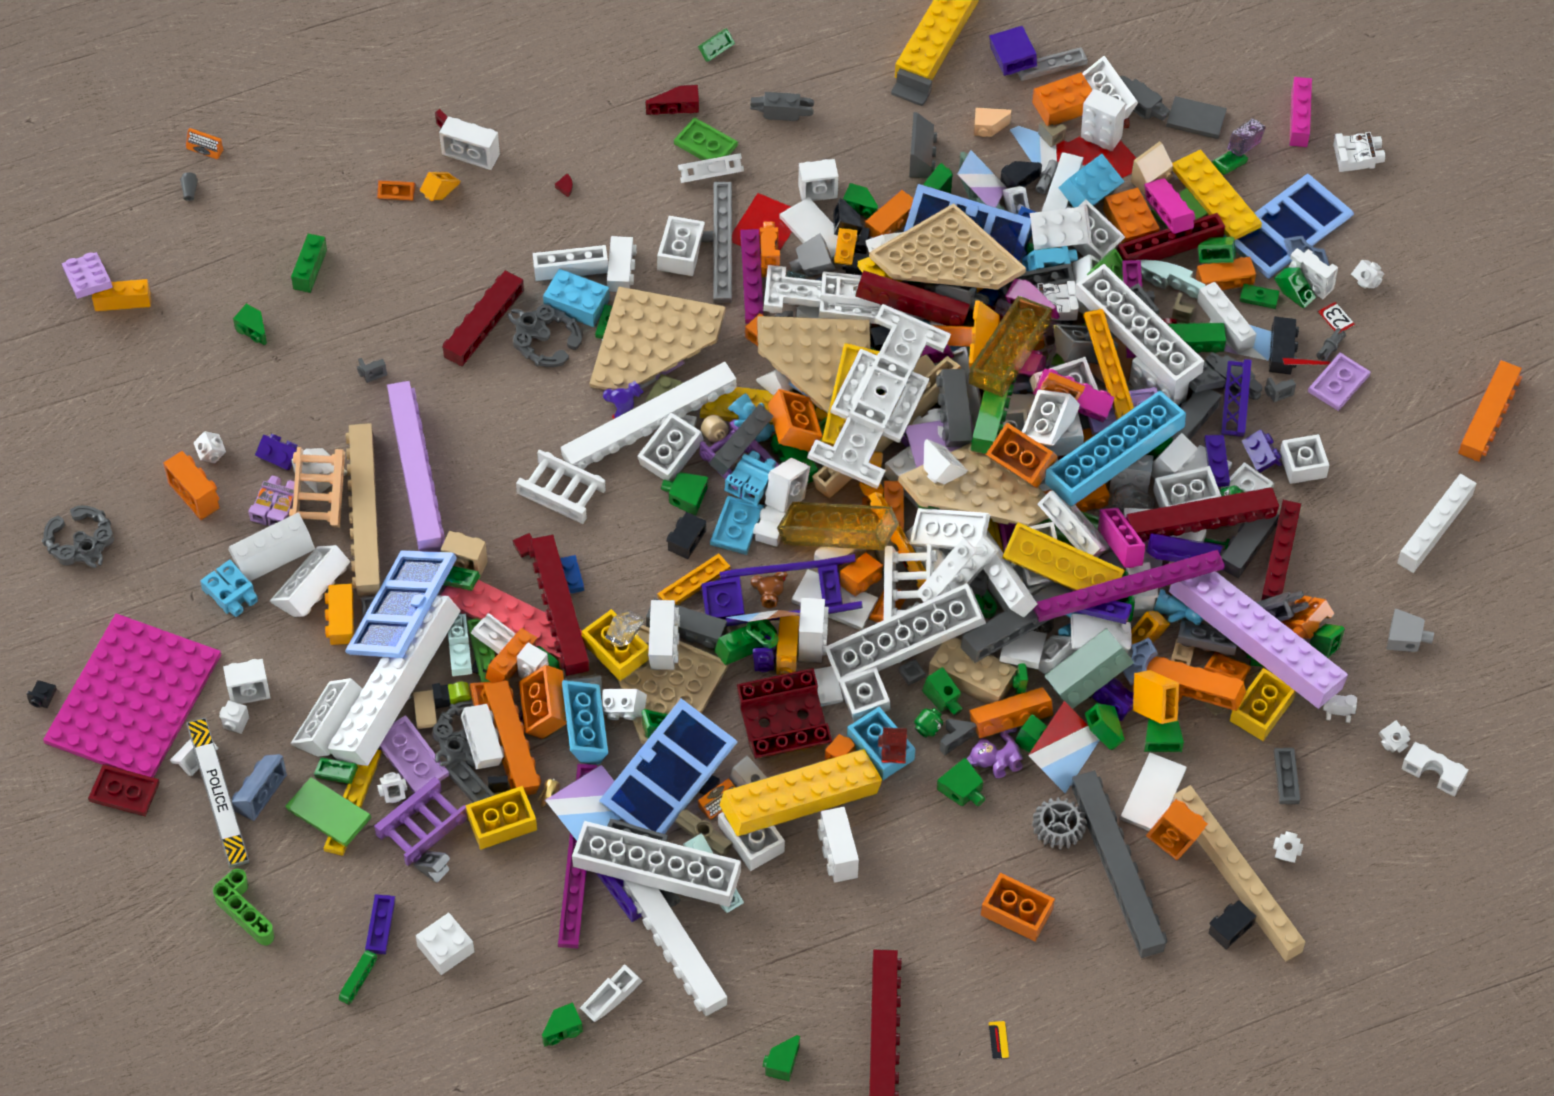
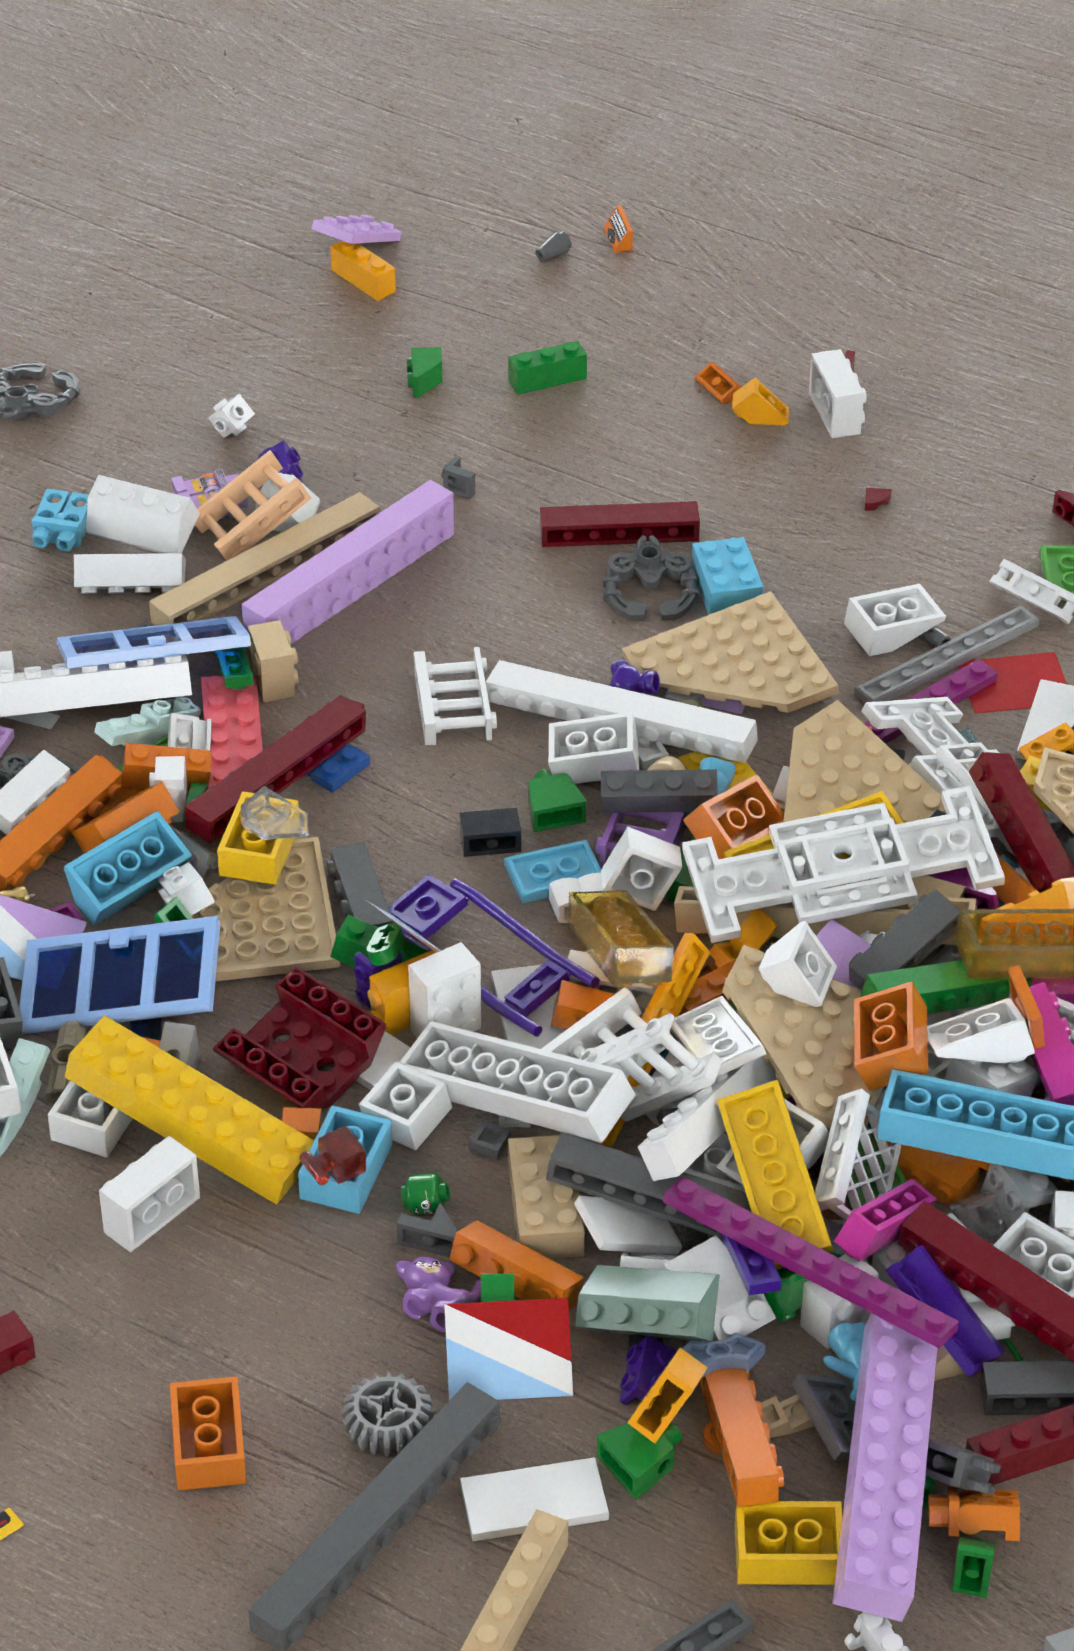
camera: 55 degrees right, 15 degrees down
(192, 485) = (165, 424): orange brick -> none
(339, 614) = (109, 612): light orange brick -> none
(424, 709) = (39, 739): tan slope -> none
(450, 694) = (72, 747): leg -> none
(576, 261) = (770, 547): white brick -> none
(621, 263) = (816, 588): white brick -> none
(663, 634) = (305, 864): white brick -> none
(692, 582) = (413, 868): light orange plate -> none
(750, 477) = (605, 826): medium azure hips -> none
(769, 247) = (975, 686): orange hips -> none
(769, 588) = (490, 941): dark orange animal -> none
(813, 257) = (1010, 730): light grey torso -> none
(942, 692) = (481, 1178): green torso -> none
(962, 784) = (361, 1277): green torso -> none
(1021, 679) = (570, 1245): green plate -> none
(1105, 725) = (589, 1377): green slope -> none
(1149, 626) = (793, 1348): light orange slope -> none
(1177, 829) = (472, 1535): orange brick -> none
(1227, 666) = (808, 1470): orange tile -> none

